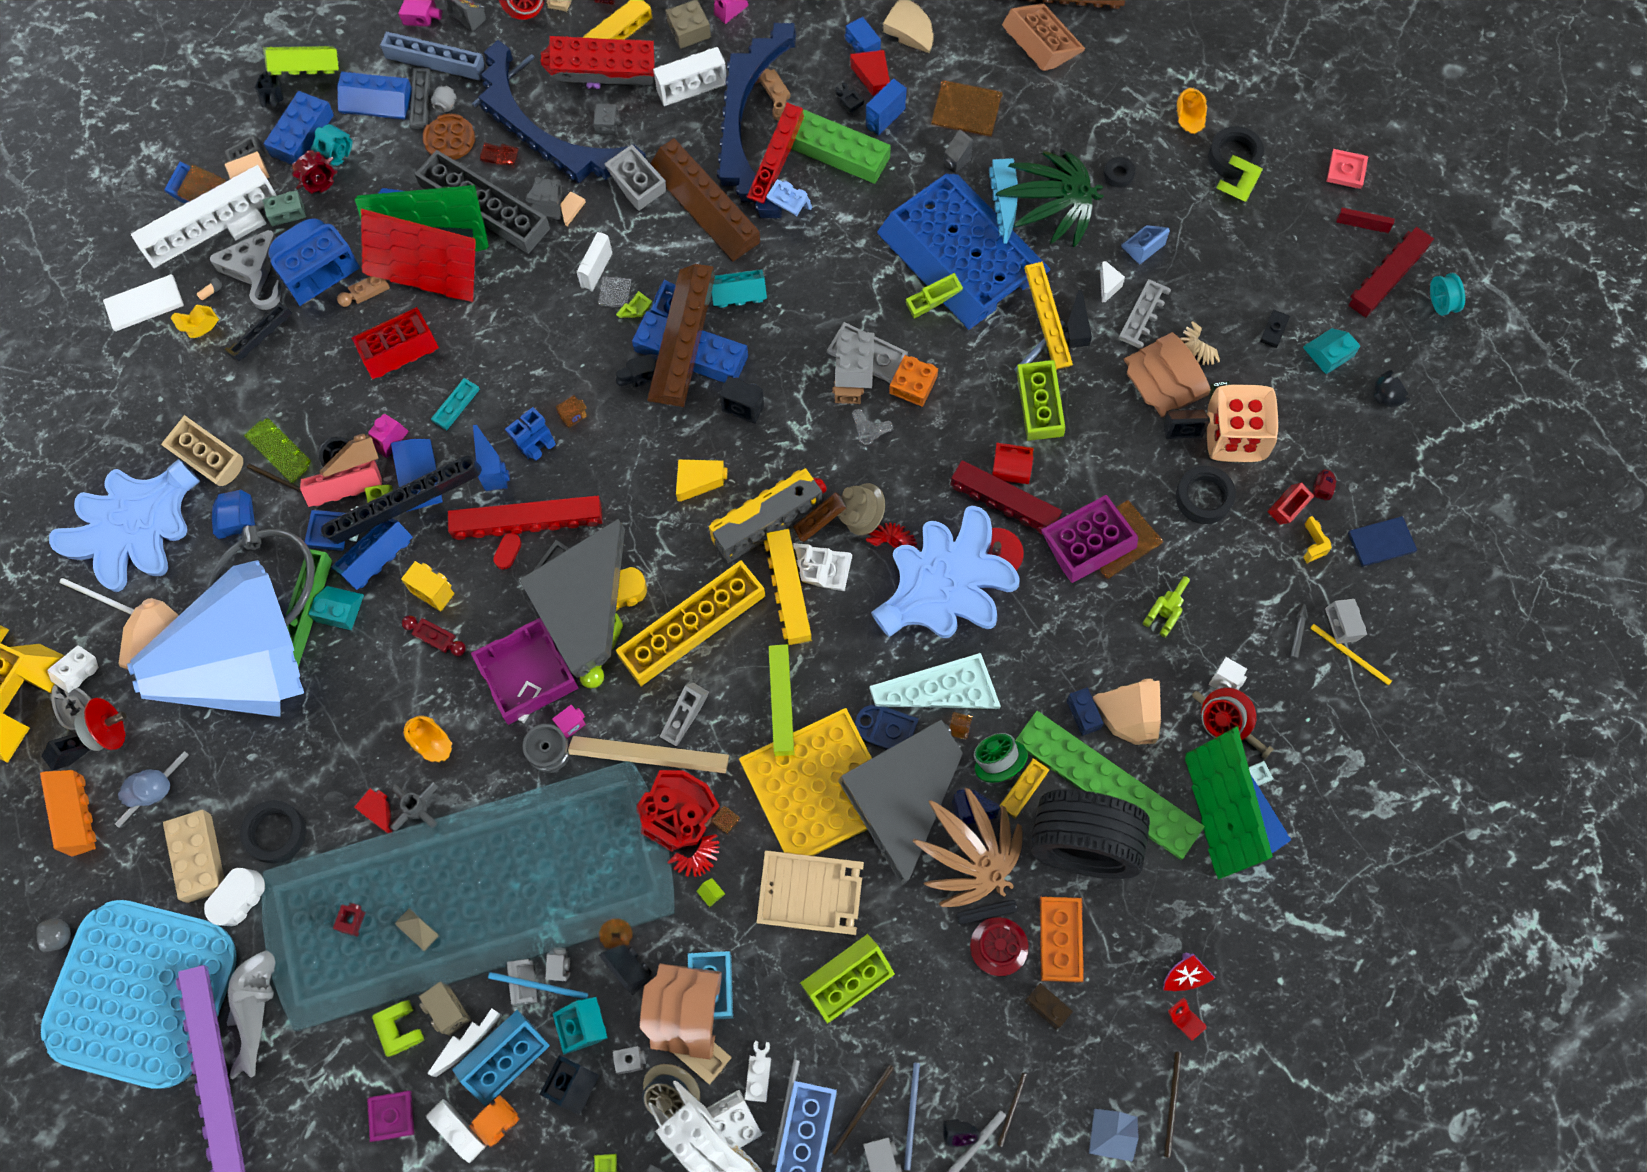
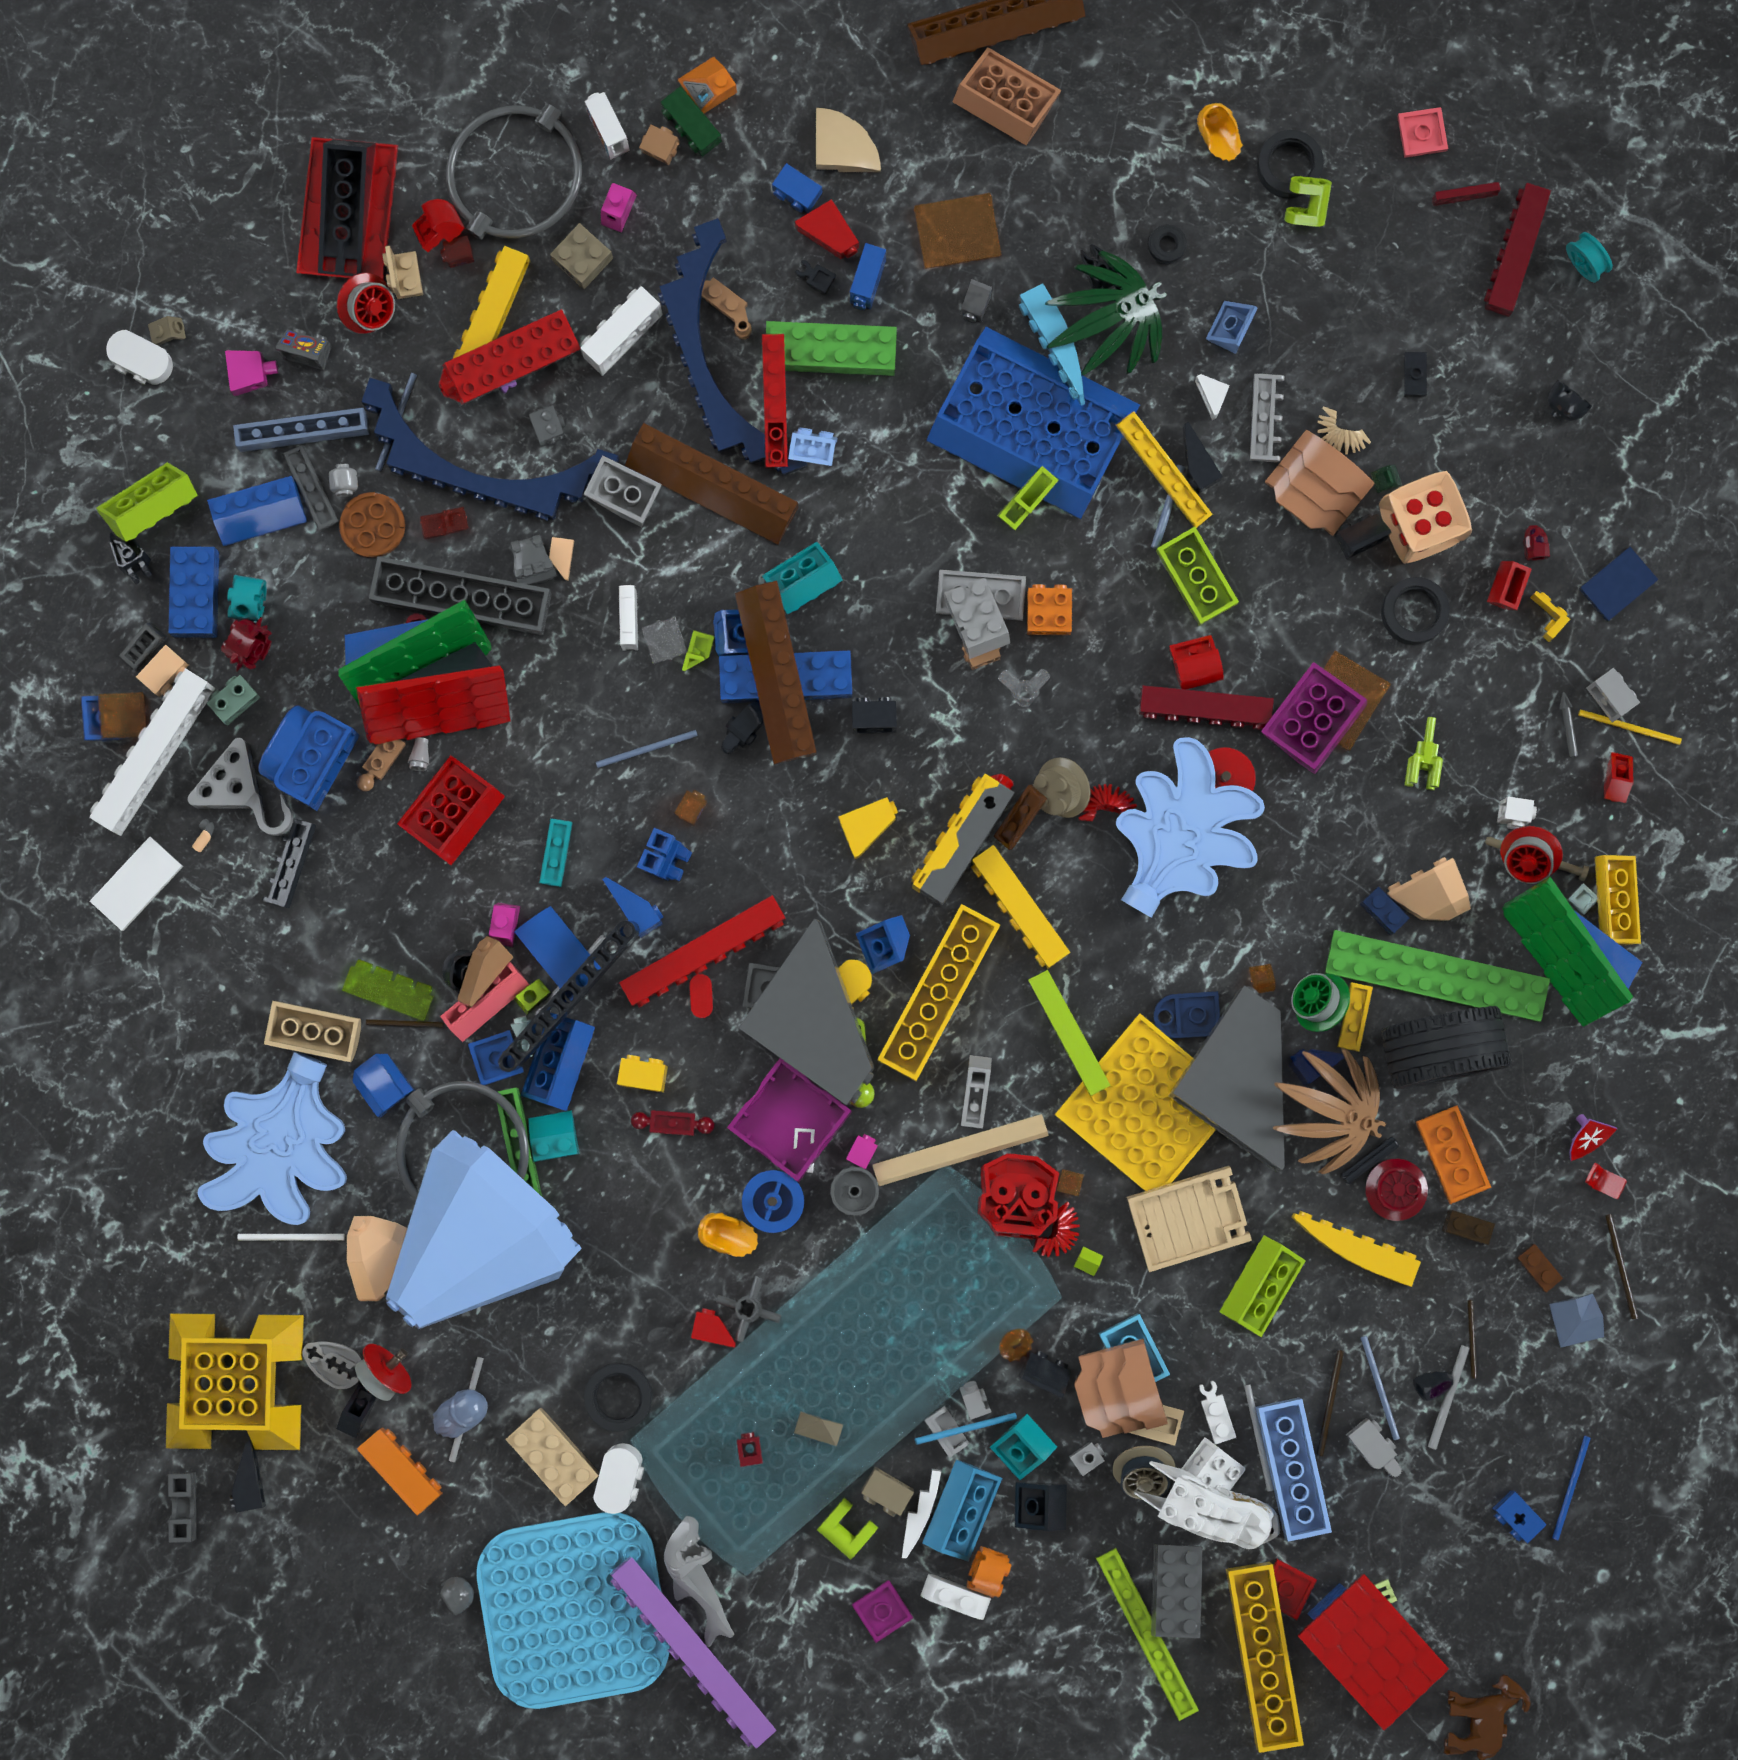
camera: 25 degrees left, 15 degrees up
(73, 669) = (315, 1326): white brick -> none
(197, 323) = (215, 882): yellow brick -> none
(246, 224) = (197, 736): white tile -> none
(393, 297) = (419, 755): none -> light grey cone
(476, 726) = (772, 1201): none -> blue piece
(562, 359) = (648, 748): none -> sand blue axle
(668, 567) = (884, 943): none -> blue slope
(823, 566) = (1045, 868): white slope -> none
(947, 986) = (1362, 1250): none -> yellow slope
(949, 685) = (1235, 942): light aqua wing -> none
(1098, 1072) = (1539, 1268): none -> reddish brown plate
(1290, 782) = (1618, 898): none -> yellow brick
(1326, 689) = (1618, 777): none -> red slope
(1332, 349) = (1485, 374): teal slope -> none

